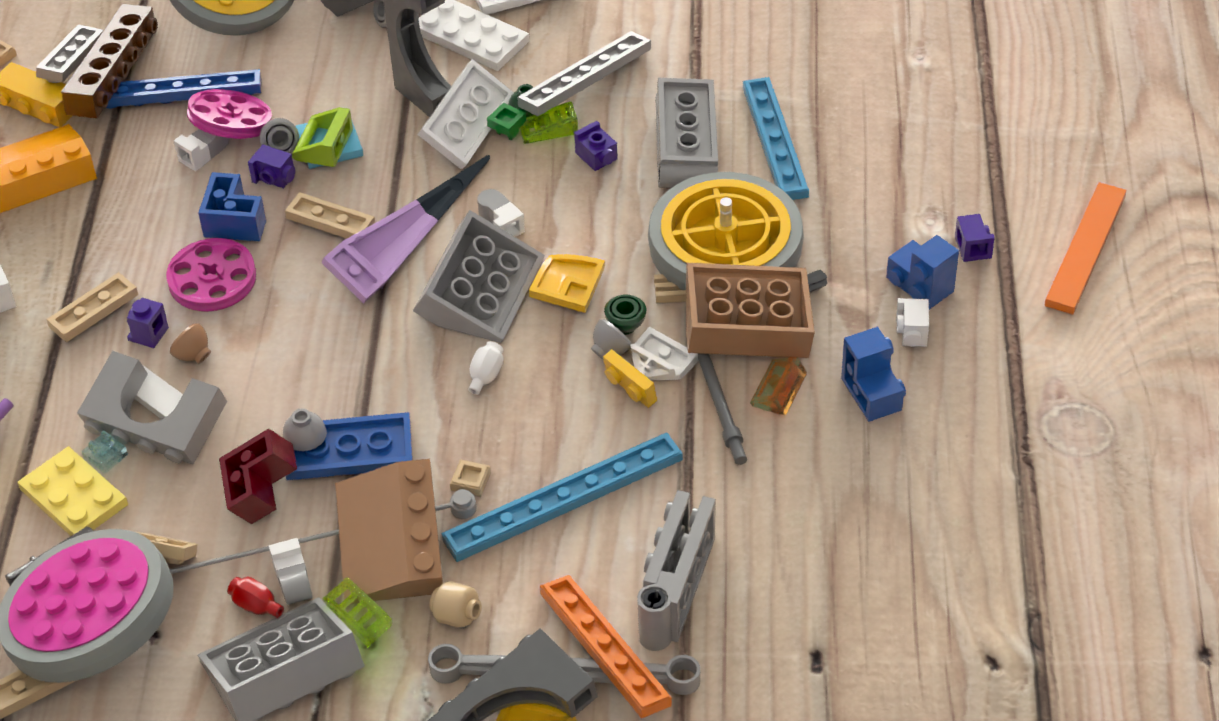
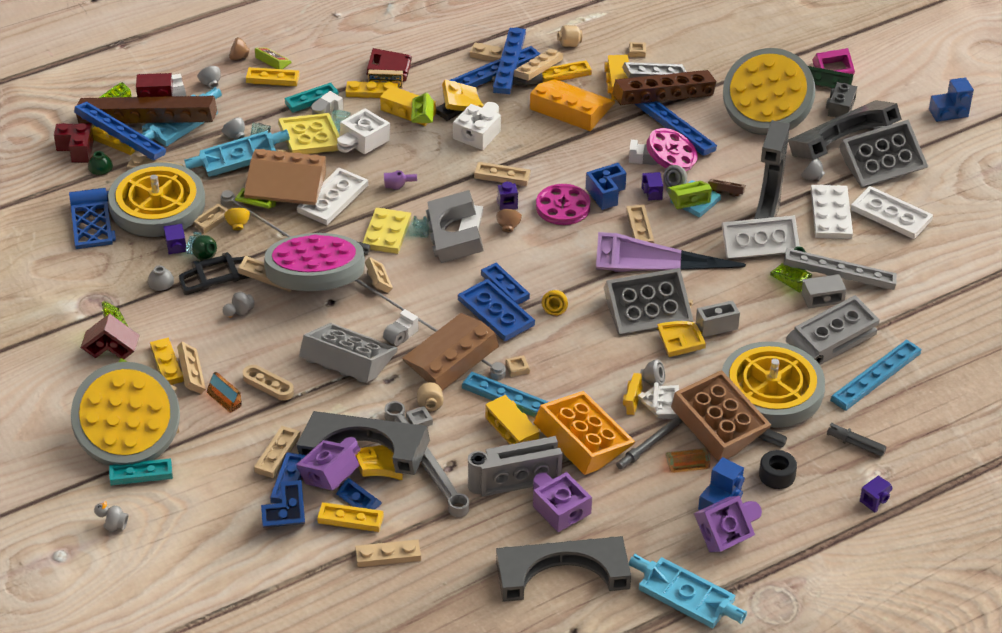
camera: 55 degrees right, 5 degrees down
(251, 472) = (442, 281): dark red brick -> none
(254, 597) = (376, 323): red plant -> none
(304, 430) = (486, 285): light grey brick -> none
(327, 406) = (505, 283): none -> blue plate
(347, 96) = (733, 188): none -> reddish brown plate
(367, 635) = (396, 376): clear neon green slope -> none
(394, 374) = (555, 302): none -> yellow brick
(483, 638) = (419, 416): none -> light grey plate
(485, 366) = (593, 335): white plant -> none
(500, 212) = (702, 292): leg -> none
(506, 120) = (772, 256): green tile -> none
(573, 224) = (717, 318): none -> light grey brick
(581, 536) = (510, 421): none -> yellow brick
(595, 146) = (791, 301): dark purple brick -> none
(606, 104) = (823, 291): none -> light grey brick
(606, 646) = (448, 463): orange tile -> none
(625, 312) = (675, 369): dark green brick -> none
(651, 461) = (583, 431): none -> light orange slope
(756, 540) = (560, 500): none -> medium lavender brick
(845, 660) = (601, 555): none -> dark grey arch
(861, 213) = (856, 440): none -> dark grey axle
(868, 292) = (777, 478): none -> black tyre
(913, 321) = (783, 494): white brick -> none
(925, 269) = (823, 481): blue brick -> none
(938, 399) = (727, 522): none -> medium lavender brick
(1011, 502) = (686, 591): none -> medium azure plate
(1085, 248) = (922, 551): orange tile -> none

